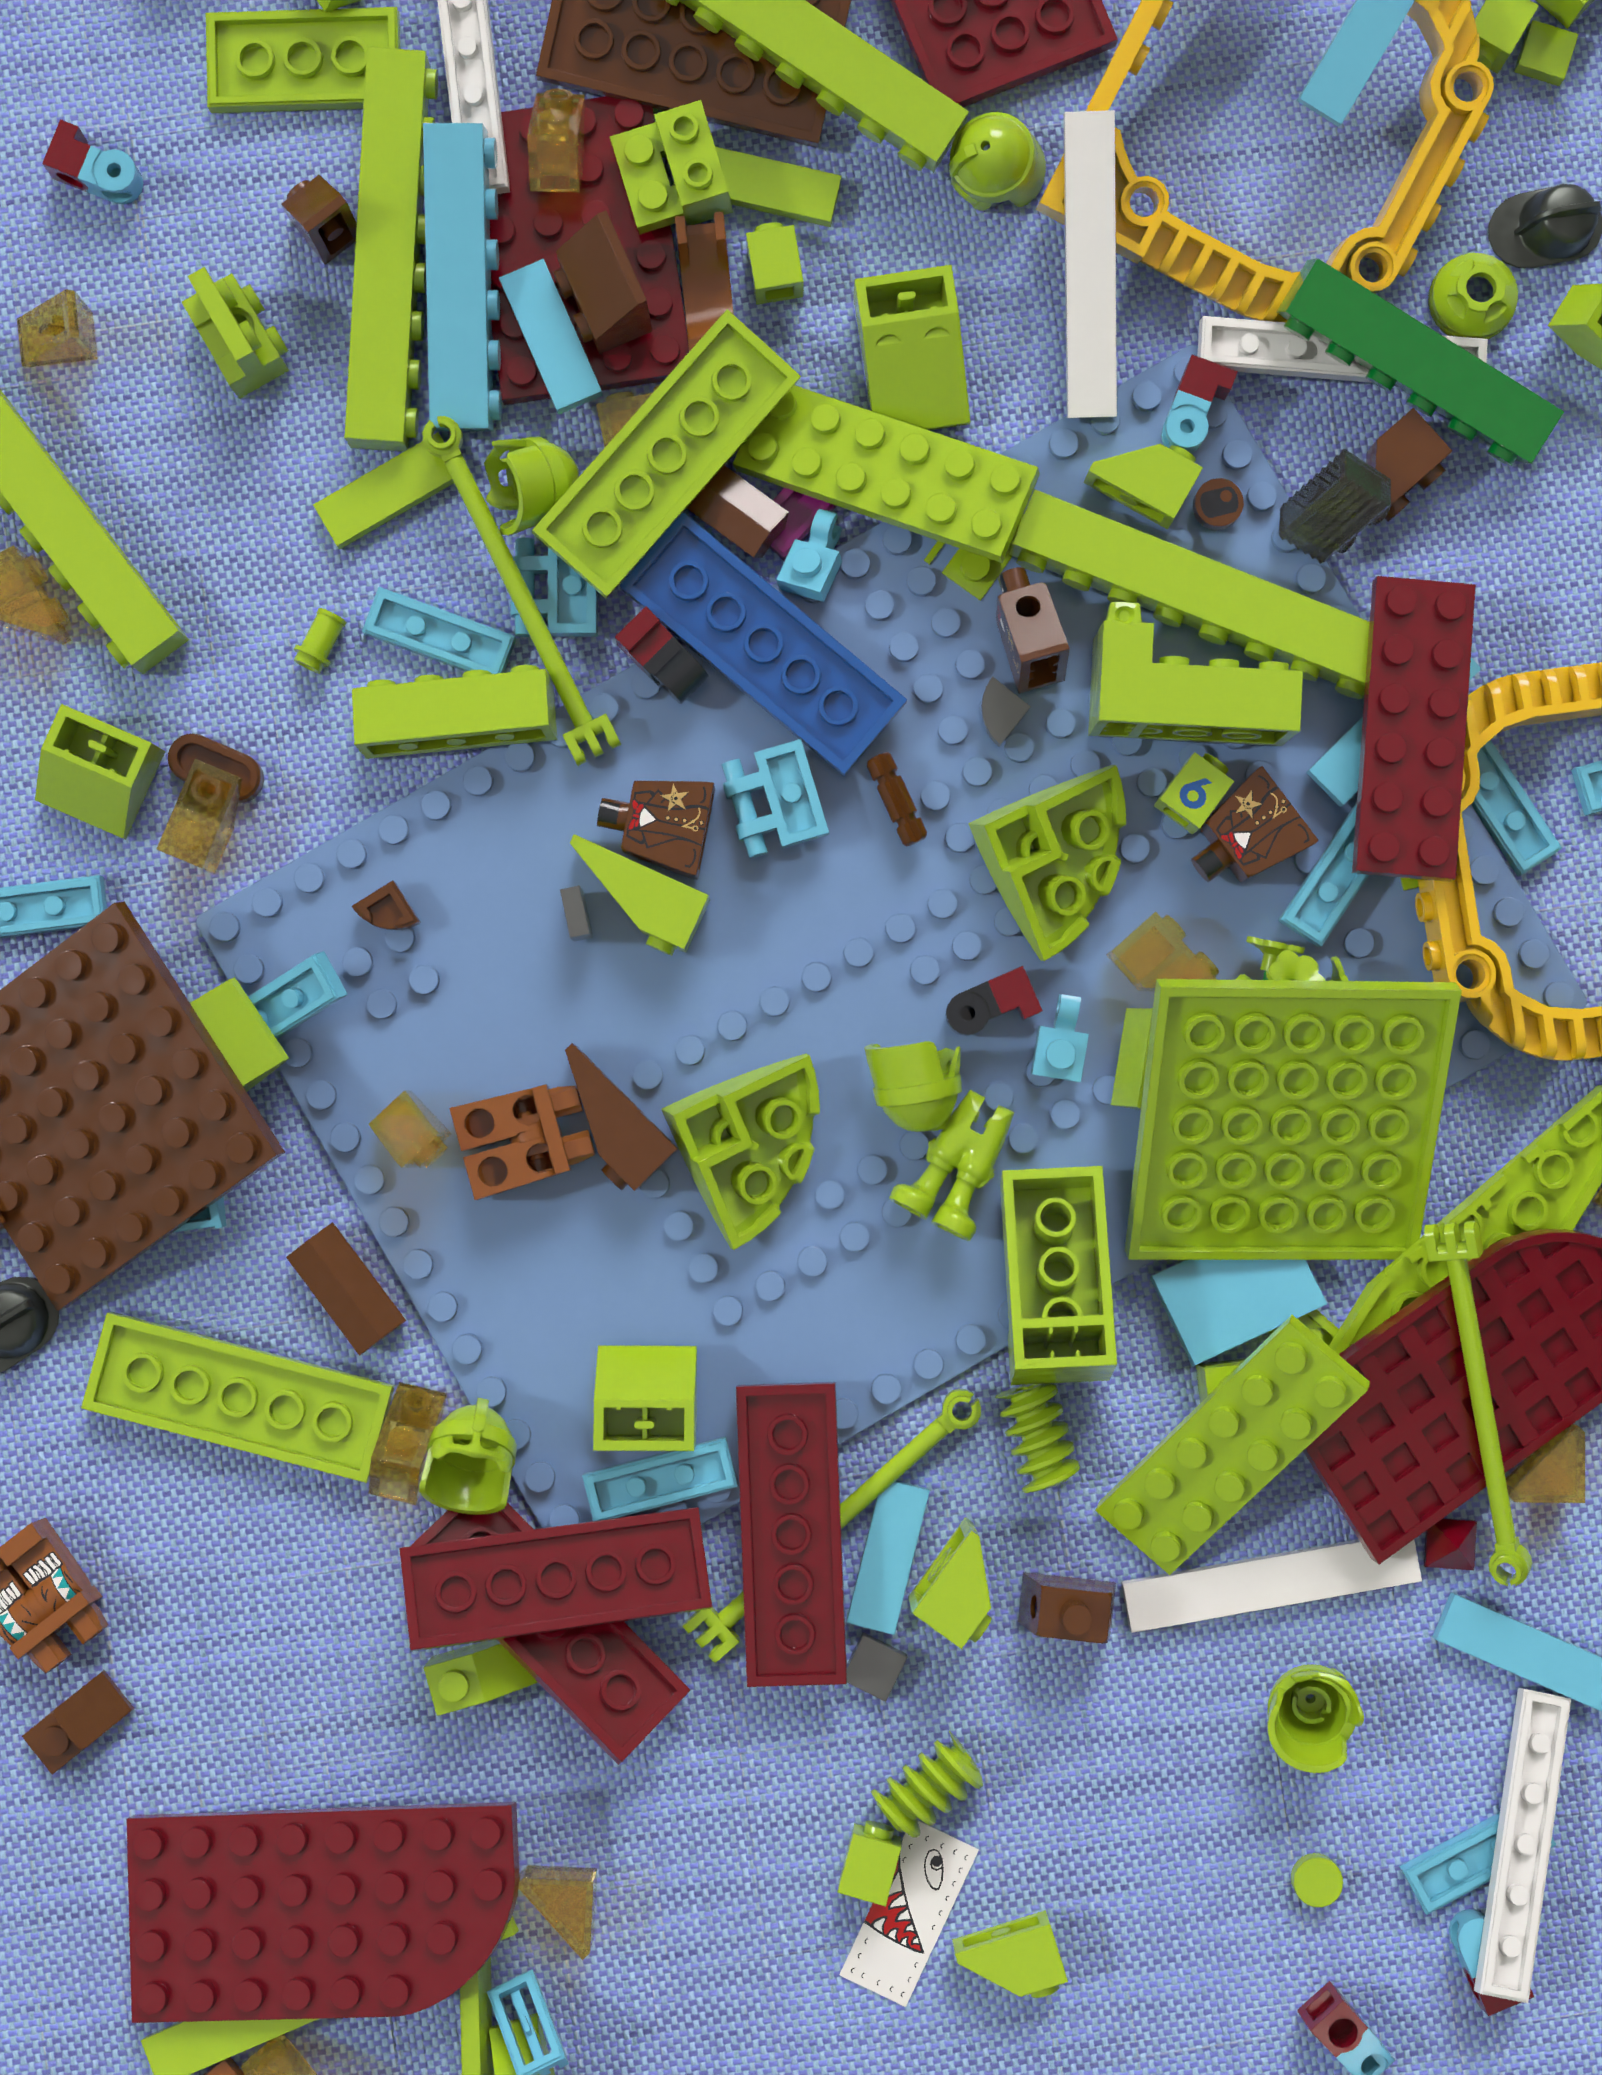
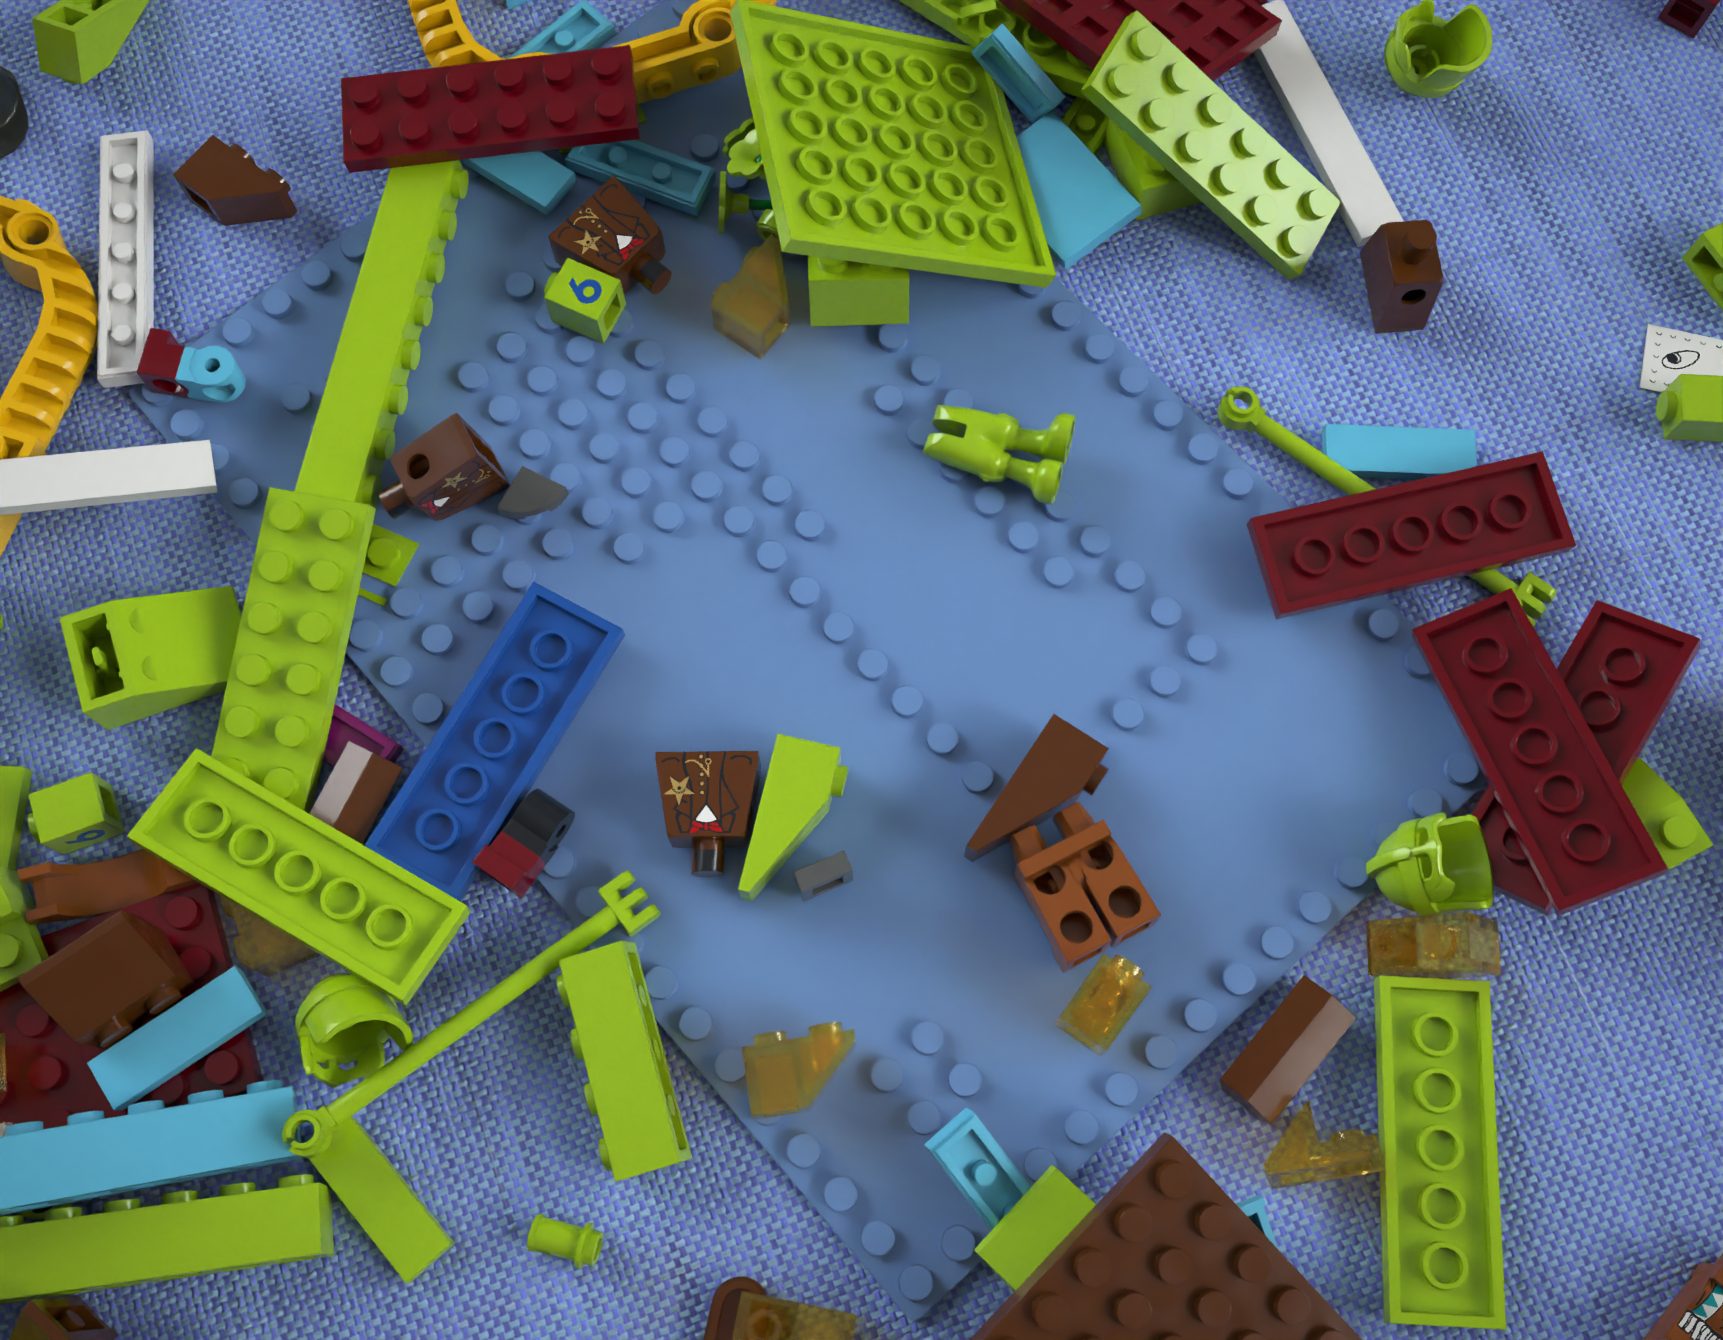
camera: 100 degrees left, 15 degrees down
(254, 1278) = (1304, 1160): none -> clear yellow slope
(387, 909) = (858, 1091): reddish brown tile -> none
(411, 852) = (794, 1072): none -> clear yellow slope
(437, 633) = (536, 1106): medium azure tile -> none
(570, 601) = (470, 962): medium azure plate -> none
(645, 1398) = (1320, 698): lime slope -> none
(660, 1480) = (1394, 677): medium azure tile -> none
(748, 1142) = (1026, 655): lime brick -> none
(789, 792) = (653, 682): medium azure plate -> none
(813, 564) = (402, 710): medium azure plate -> none
(875, 1666) = (1508, 439): dark grey tile -> none
(896, 799) = (639, 578): reddish brown axle -> none
(915, 1083) = (931, 493): lime helmet -> none
(929, 1787) = (1611, 368): lime piece -> none
(955, 1589) = (1413, 370): lime slope -> none
(976, 1006) = (836, 458): leg -> none
(1039, 1435) = (1244, 330): lime piece -> none
(1055, 855) = (670, 418): lime brick -> none
(1057, 1276) = (1092, 325): lime hinge -> none
(1060, 1049) = (863, 379): medium azure plate -> none
(1147, 480) = (276, 395): lime slope -> none
(1184, 700) = (491, 358): lime hinge -> none
(1218, 504) = (290, 334): reddish brown tile -> none
(1316, 1880) = (1574, 39): lime tile -> none
(1335, 507) = (279, 221): clear smoke brick -> none
(1369, 1274) = (1017, 74): none -> medium azure tile
(1419, 362) = (124, 179): green brick -> none
(1460, 314) = (68, 169): lime piece -> none

